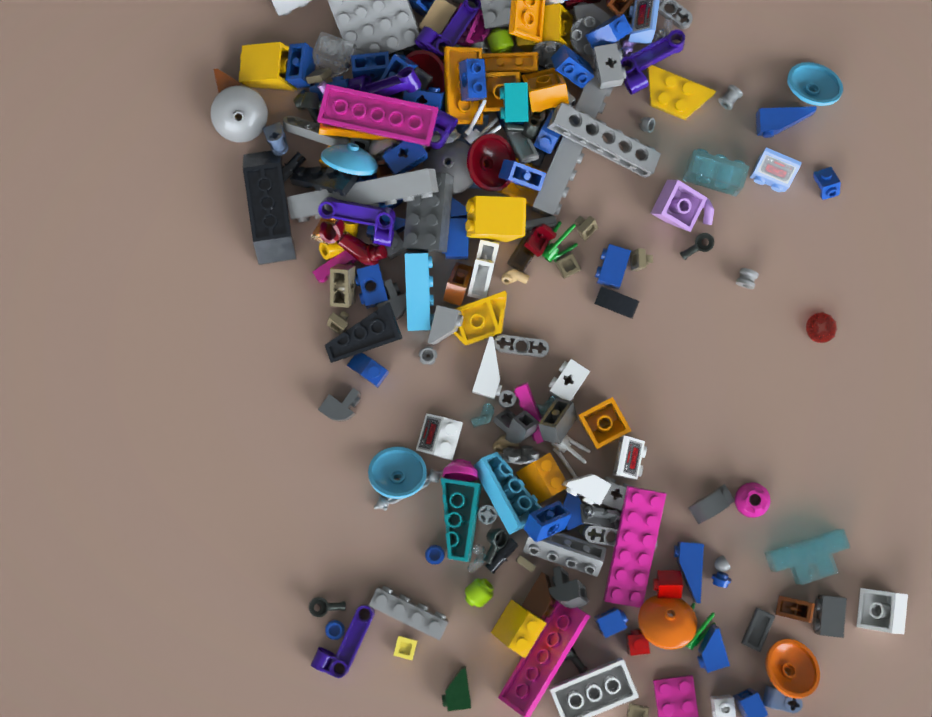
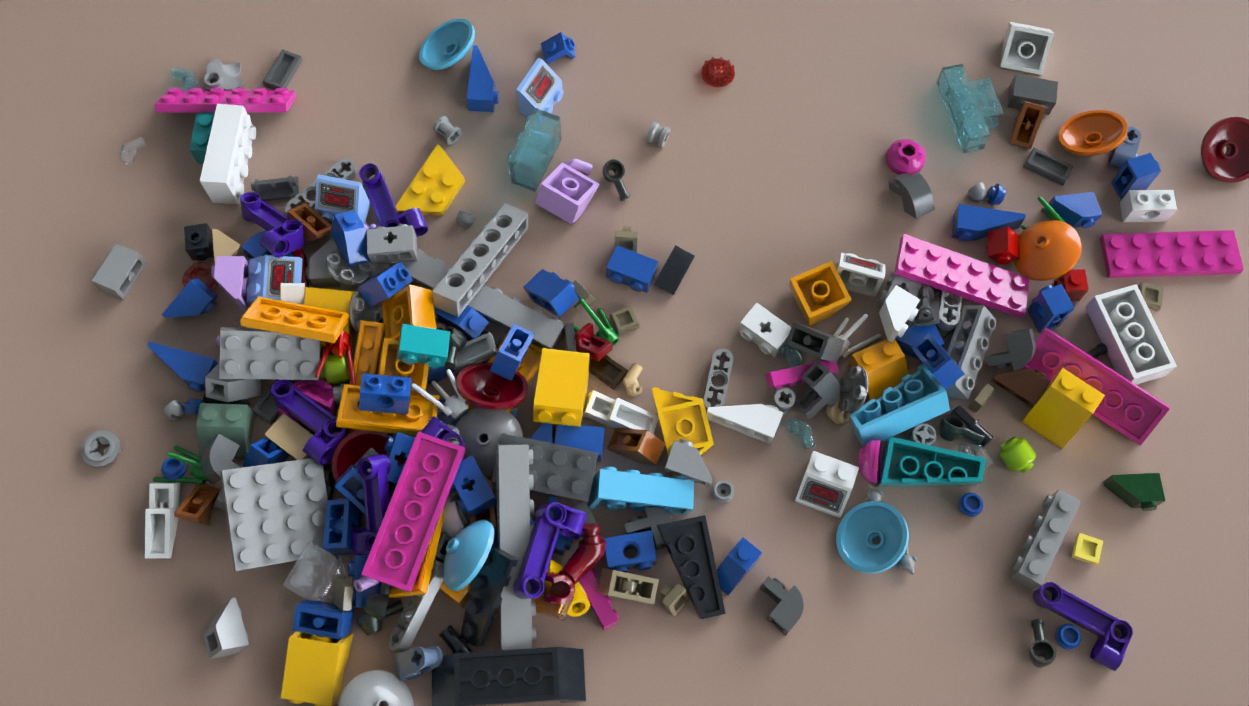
camera: 90 degrees left, 15 degrees down
(512, 40) = (338, 348): none -> red plant
(582, 201) = (551, 292): none -> blue brick

